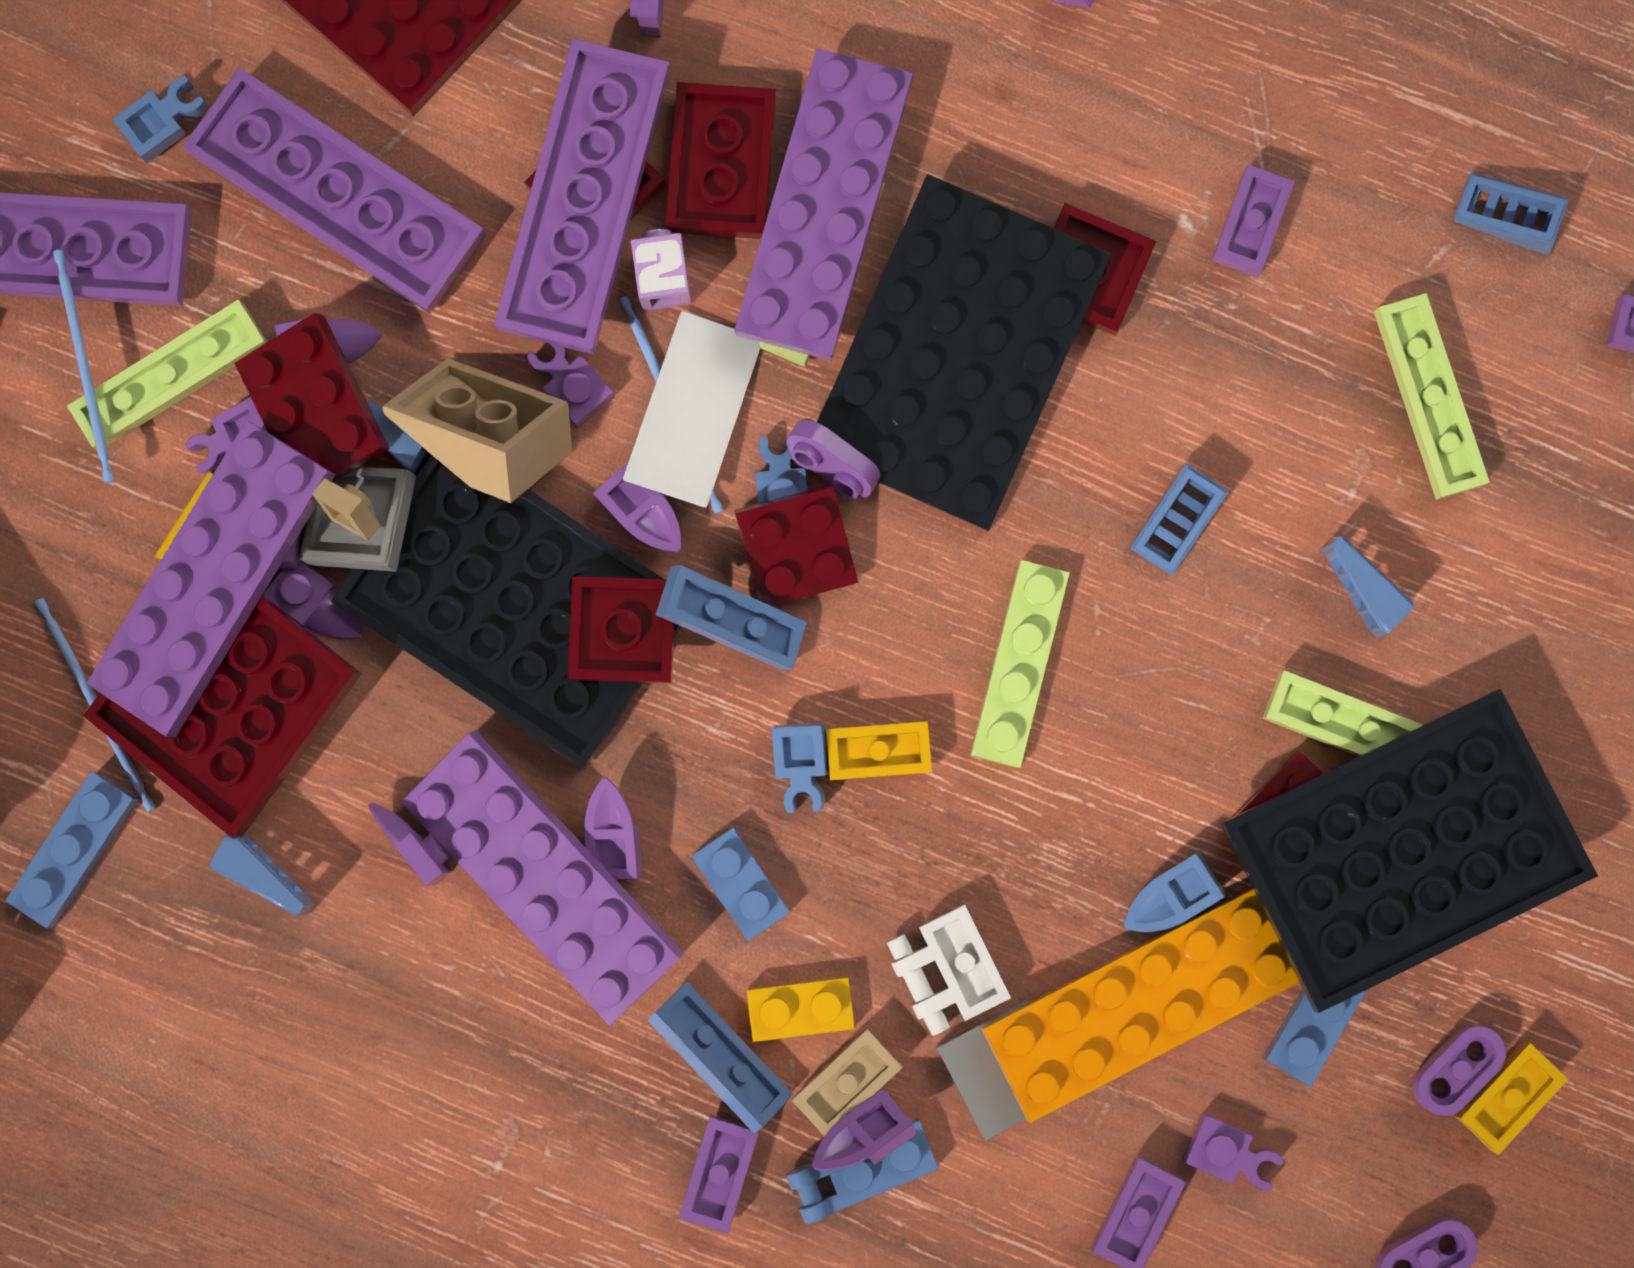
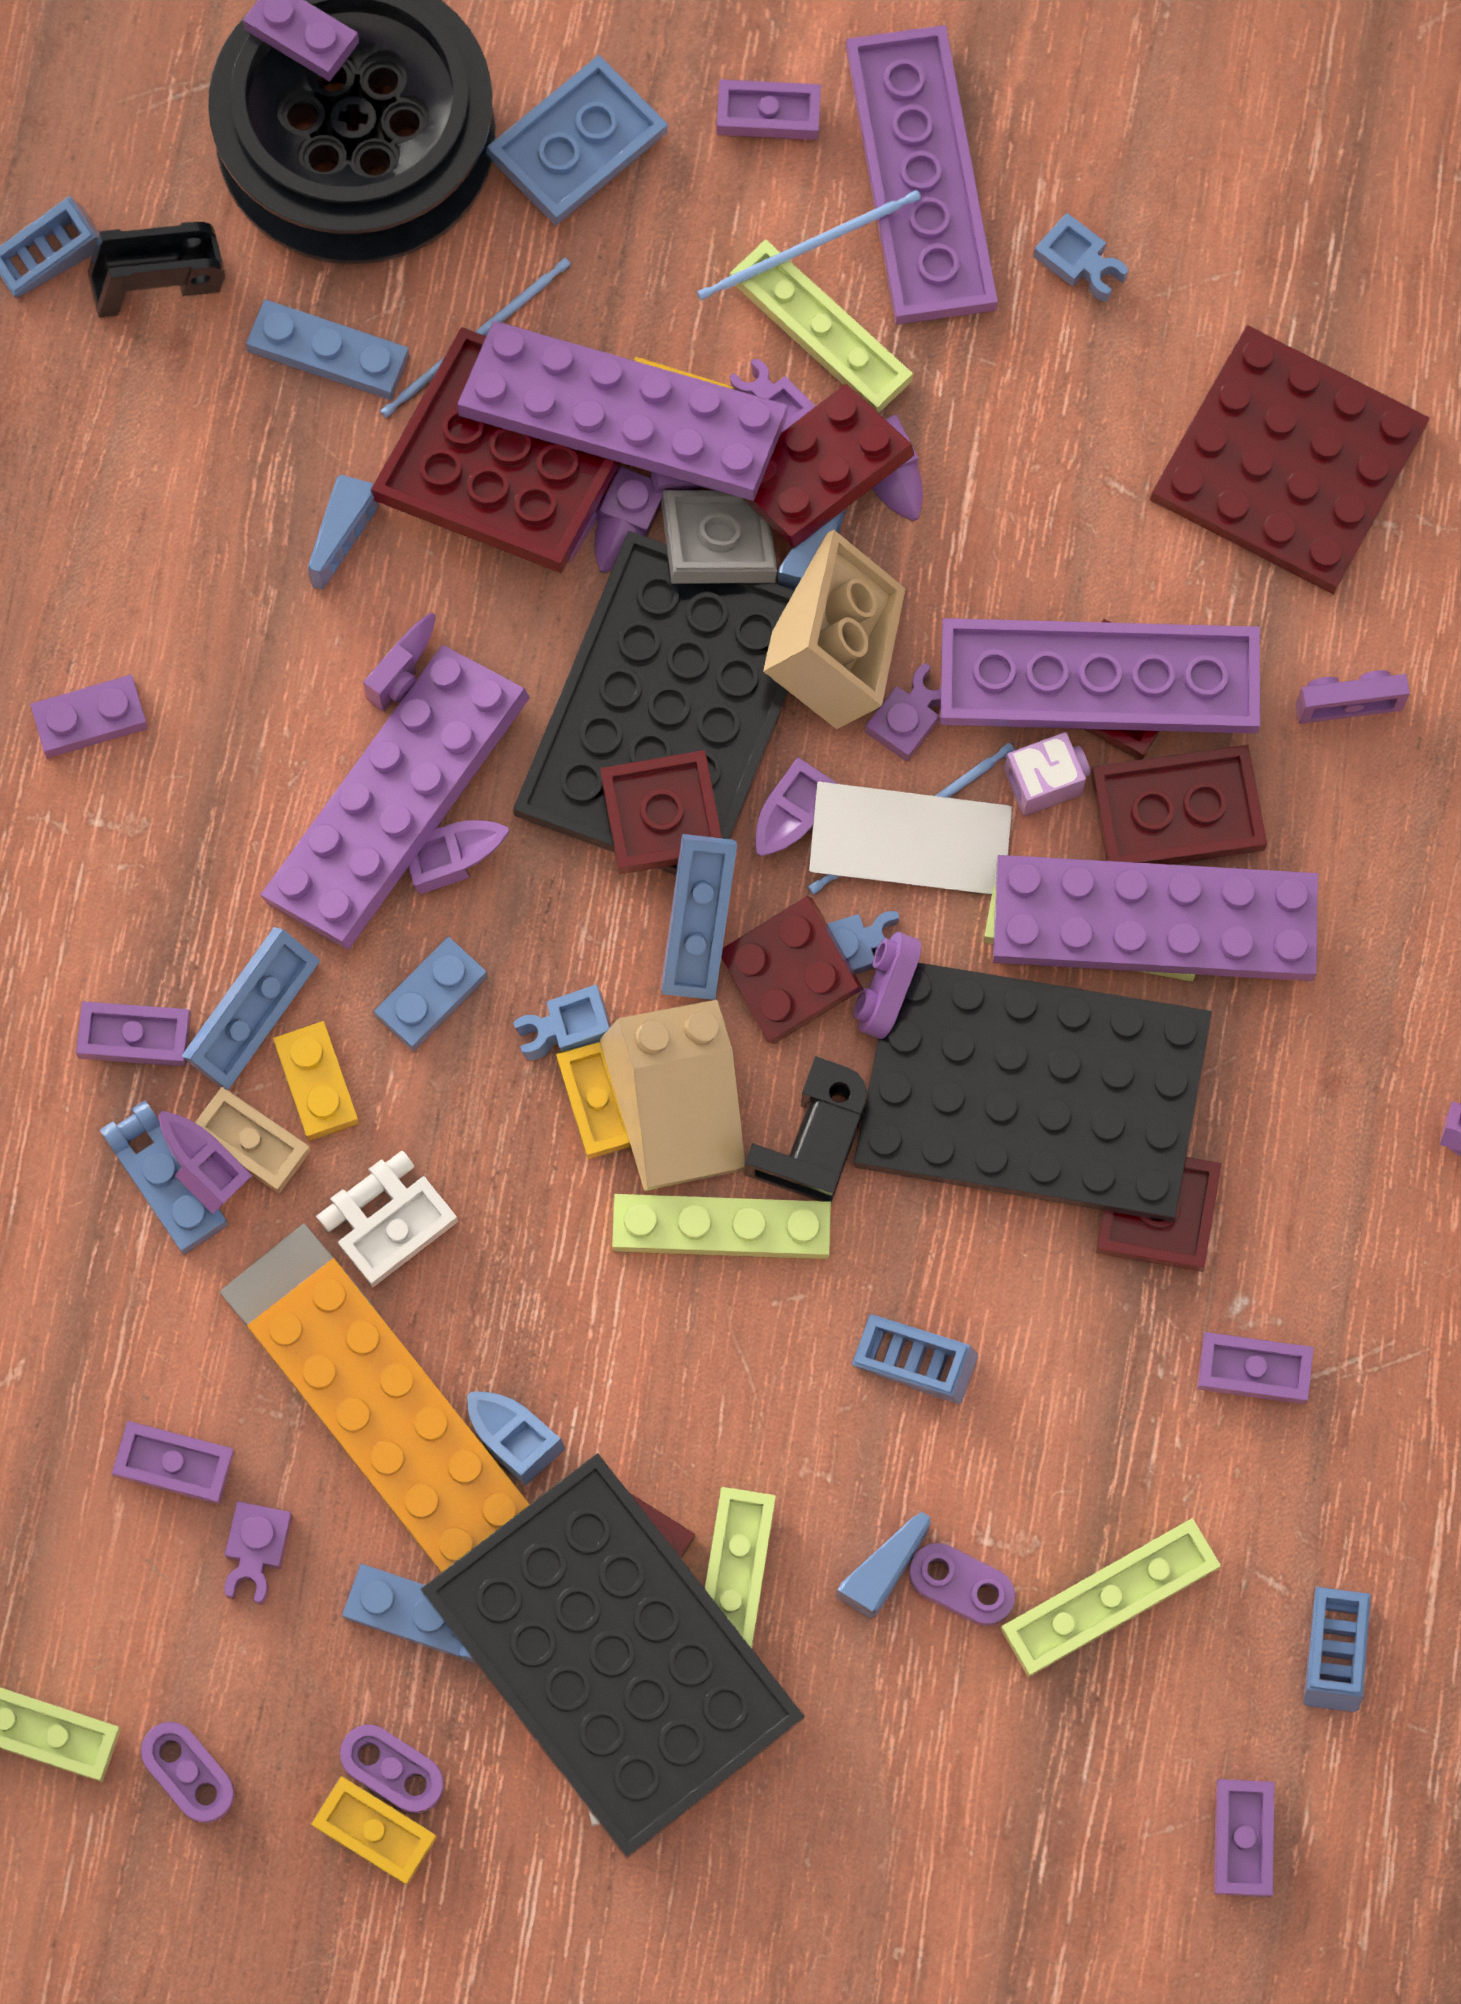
camera: 75 degrees right, 10 degrees down
(334, 190) = (1048, 440): medium lavender plate -> none
(347, 508) = (722, 520): tan plate -> none
(391, 1155) = (89, 716): none -> medium lavender plate
(895, 676) = (677, 1093): none -> tan slope
(959, 551) = (822, 1138): none -> black piece
(1392, 522) = (960, 1587): none -> medium lavender plate

